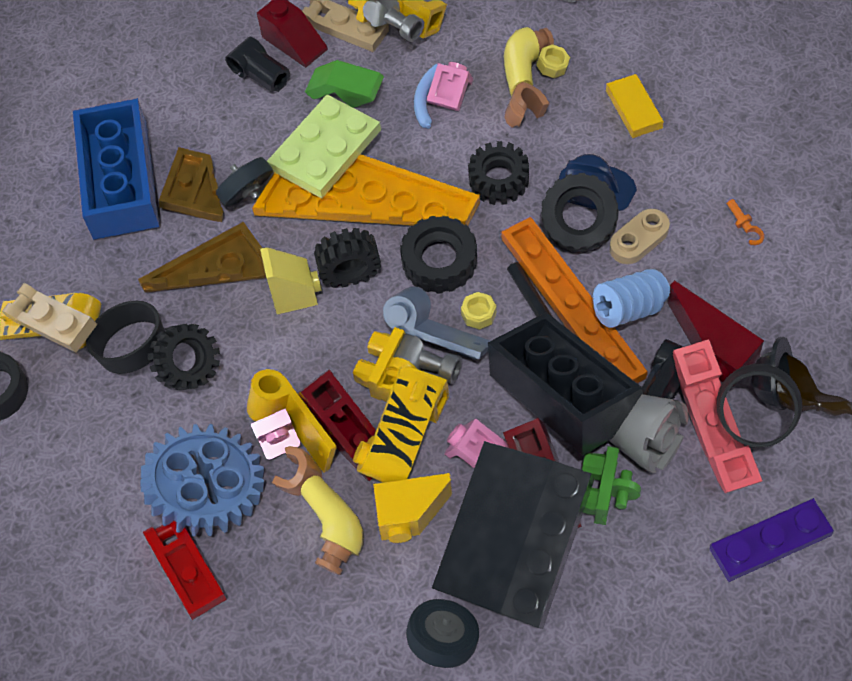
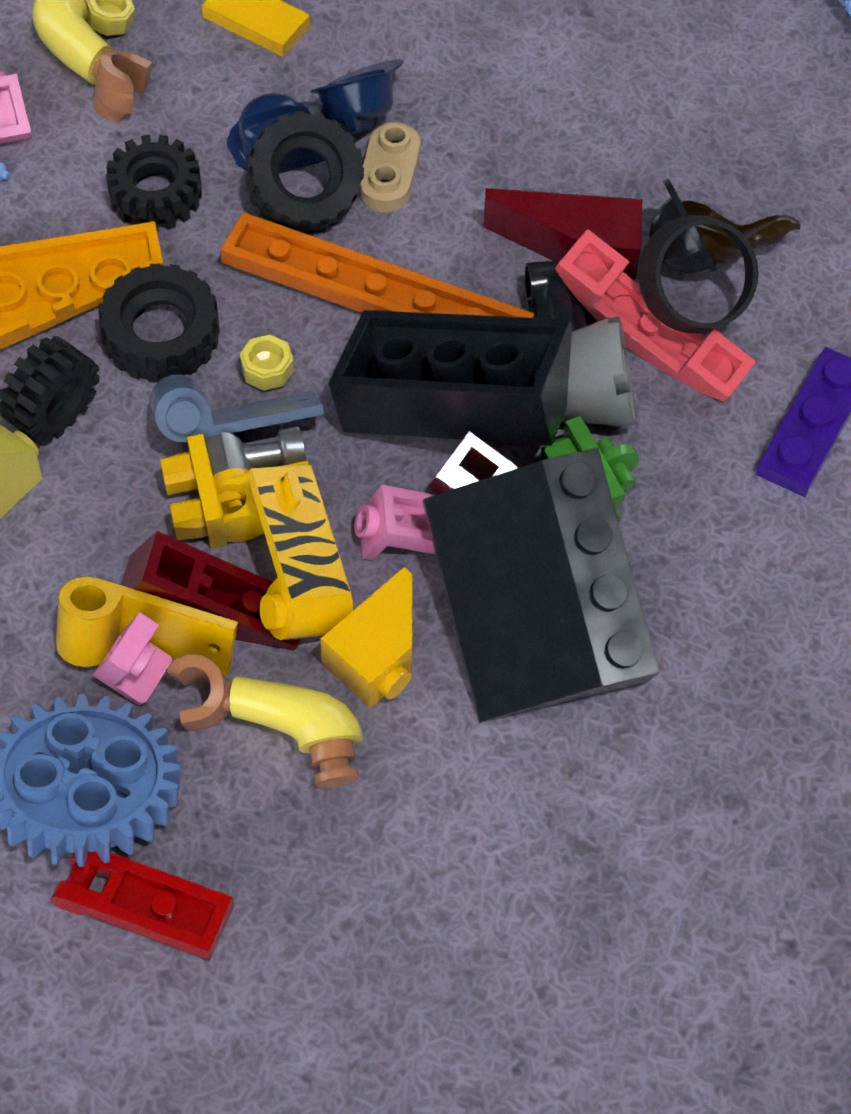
camera: 45 degrees left, 0 degrees up
(442, 633) = (544, 759): black wheel -> none
(527, 289) = (308, 306): black bar -> none
(630, 297) = (449, 238): light blue piece -> none
(651, 184) = (360, 96): none -> dark blue piece
(744, 221) = (498, 84): orange hand -> none

